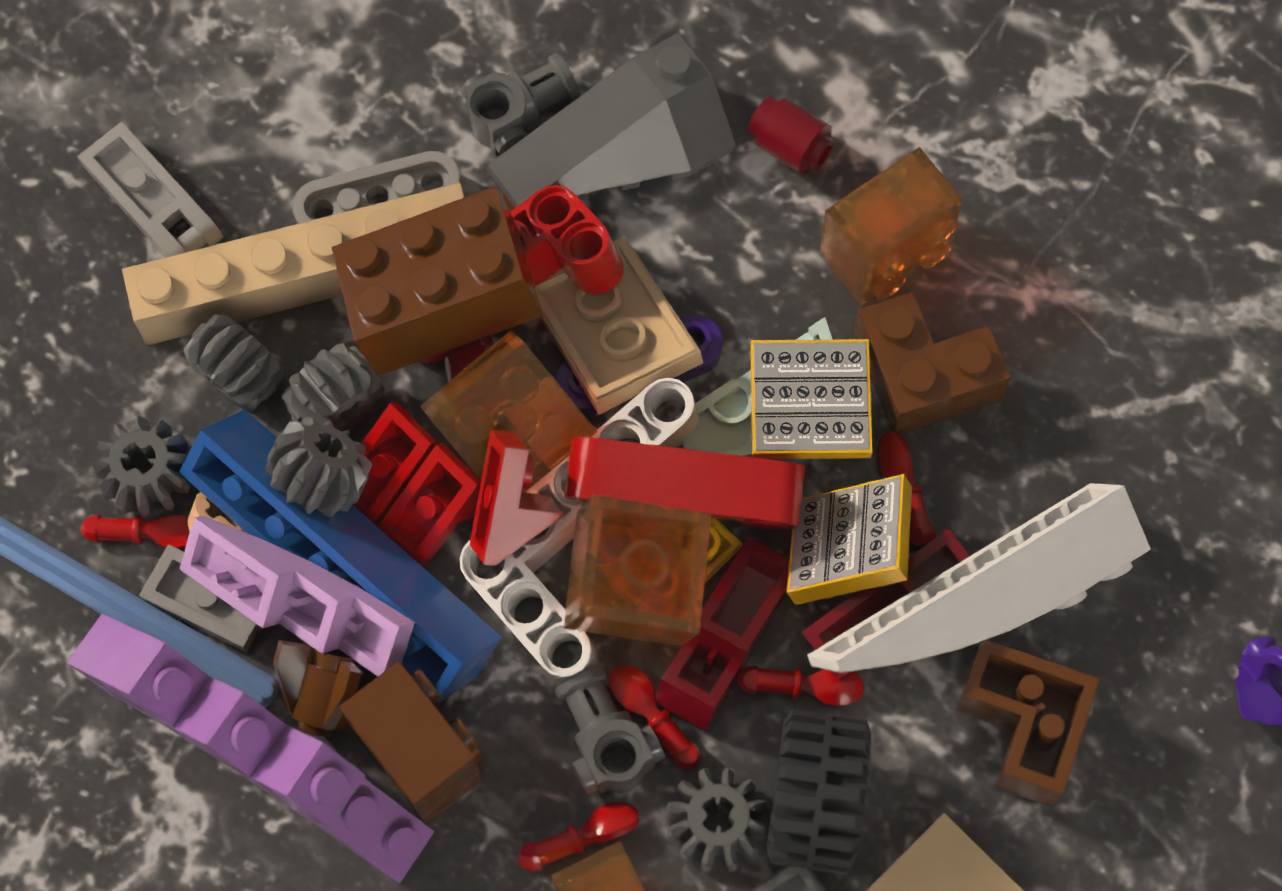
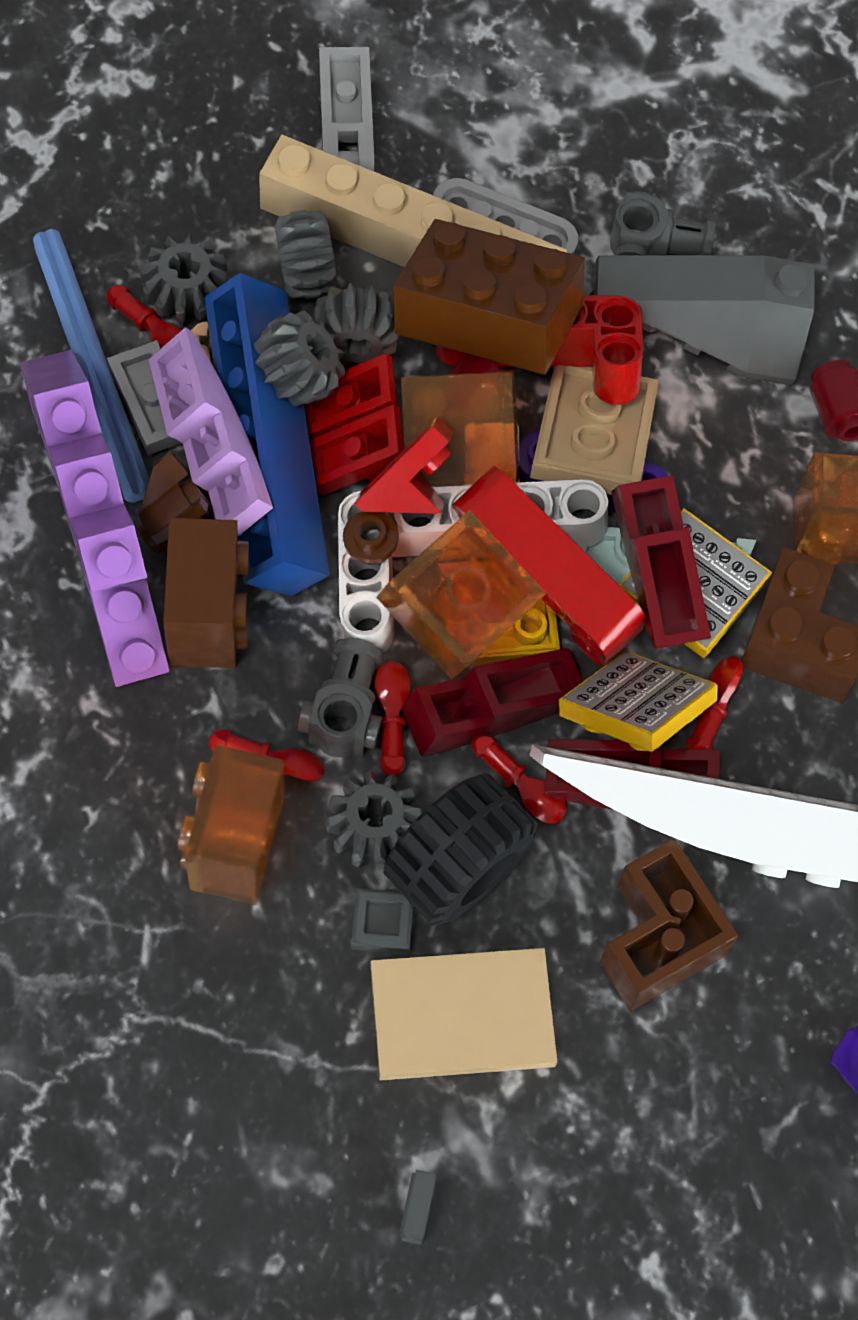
camera: 30 degrees right, 5 degrees down
(527, 592) = (375, 550): none -> reddish brown plate
(777, 406) = (661, 561): none -> dark red slope

